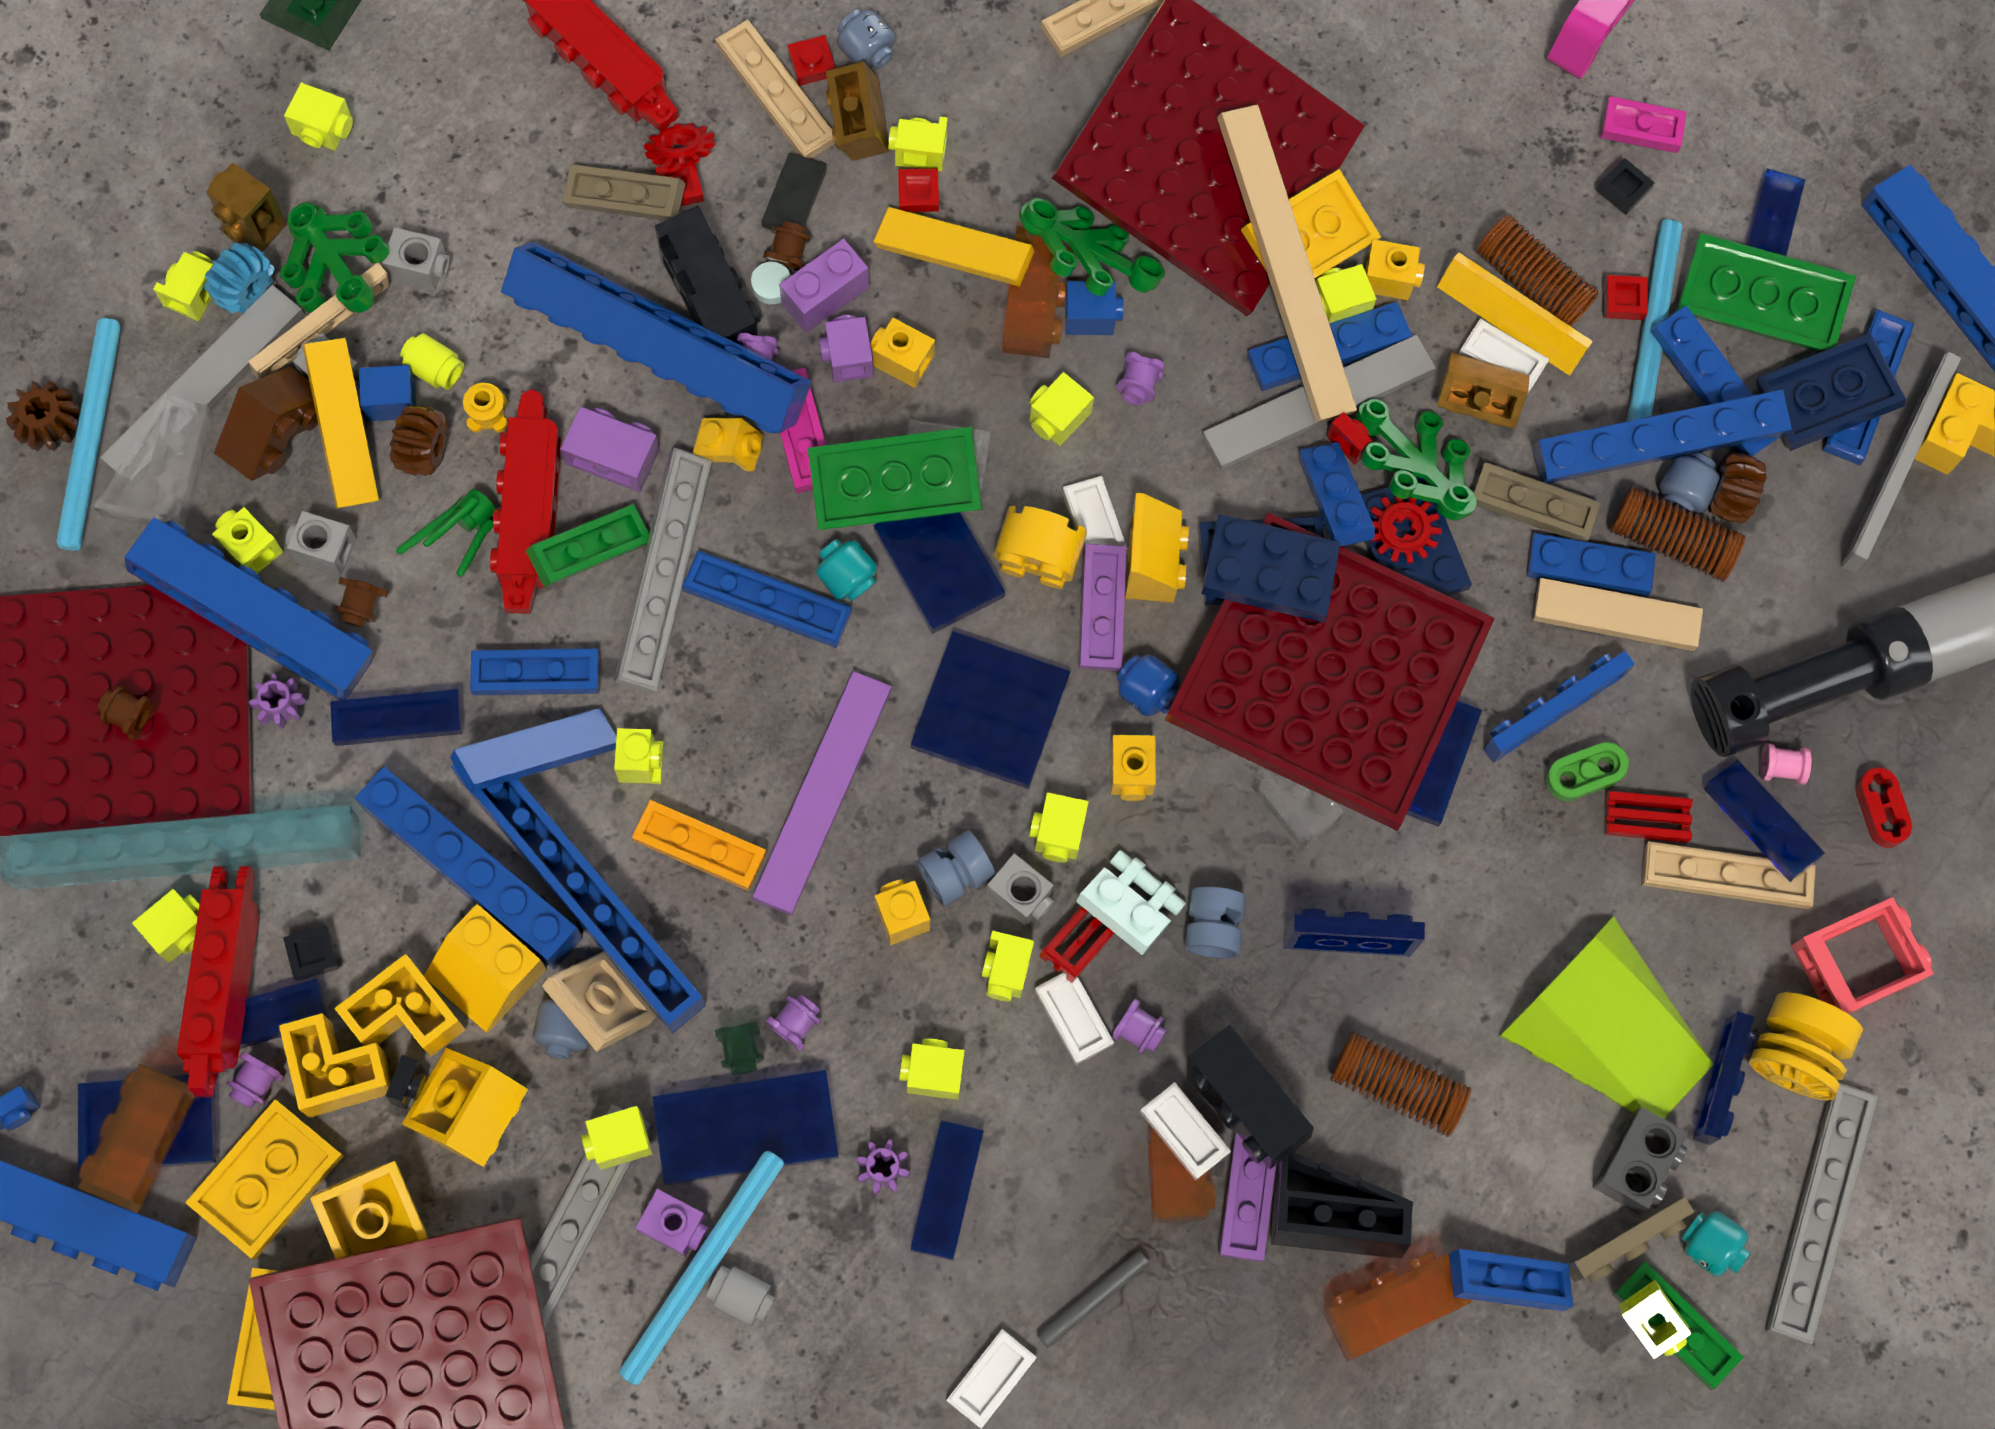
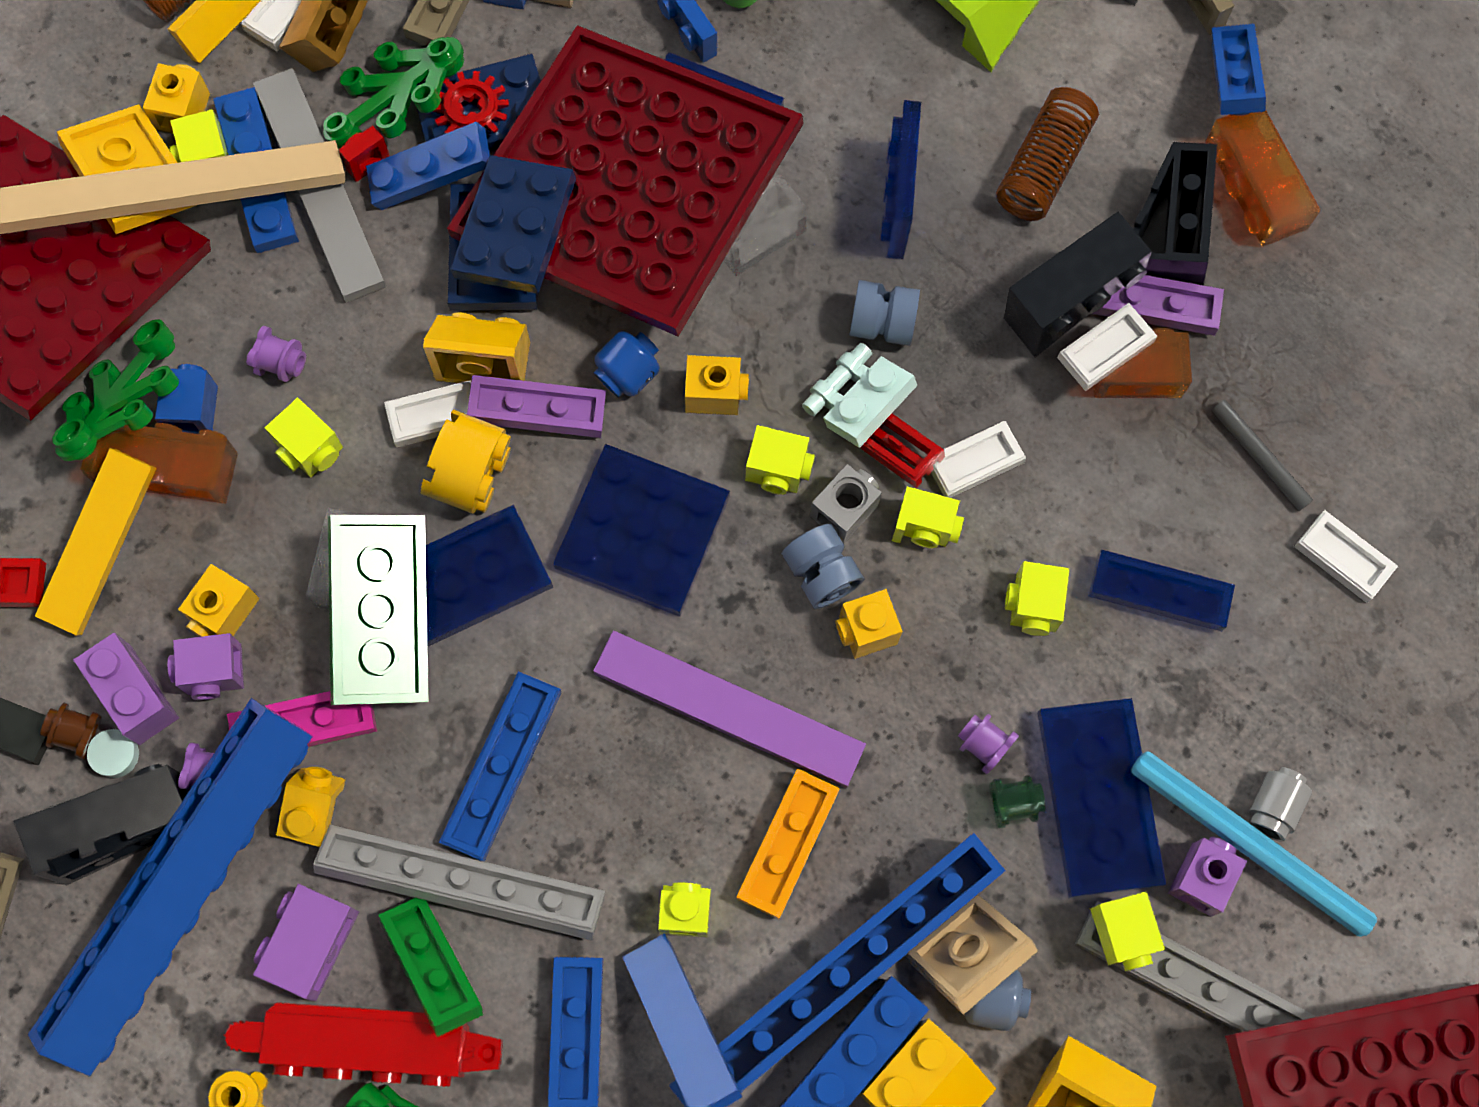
camera: 85 degrees left, 0 degrees up
(846, 569) = (475, 673): teal head -> none
(878, 1179) = (1141, 641): medium lavender gear -> none
(1140, 1028) = (991, 393): medium lavender brick -> none

